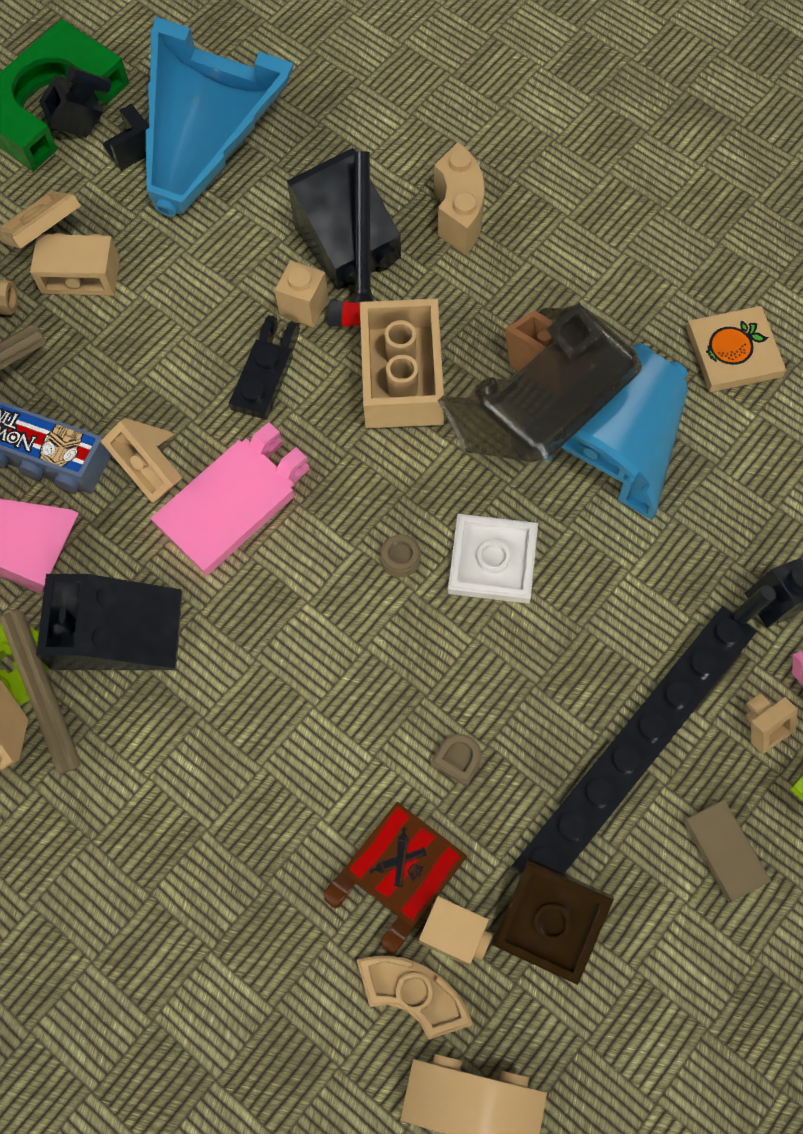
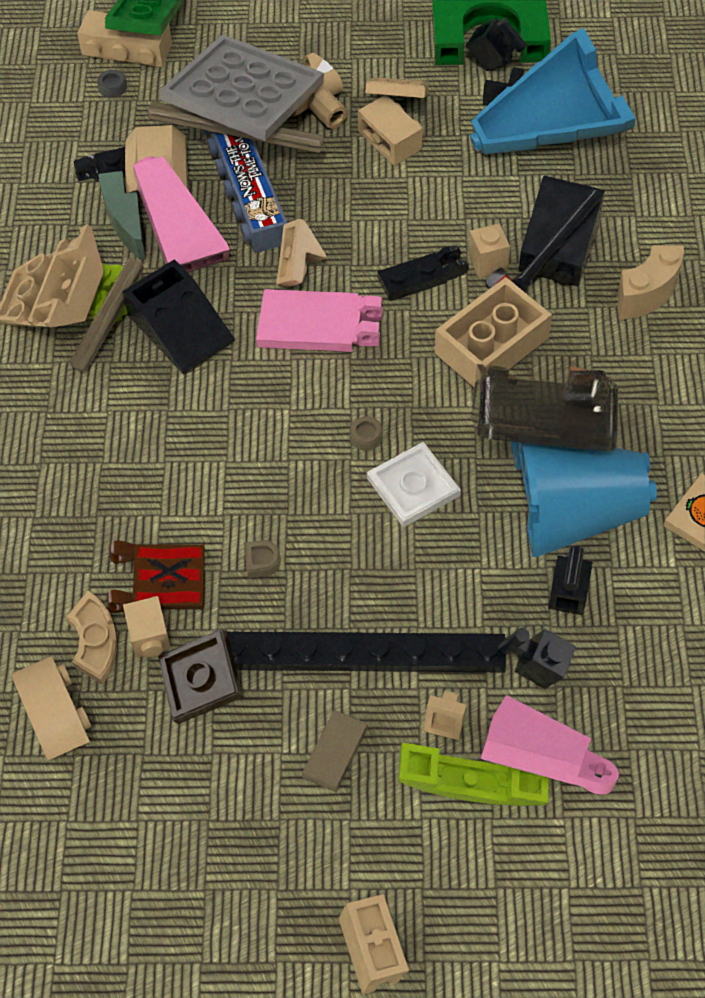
camera: 50 degrees right, 10 degrees down
(717, 510) = (570, 582): none -> black brick

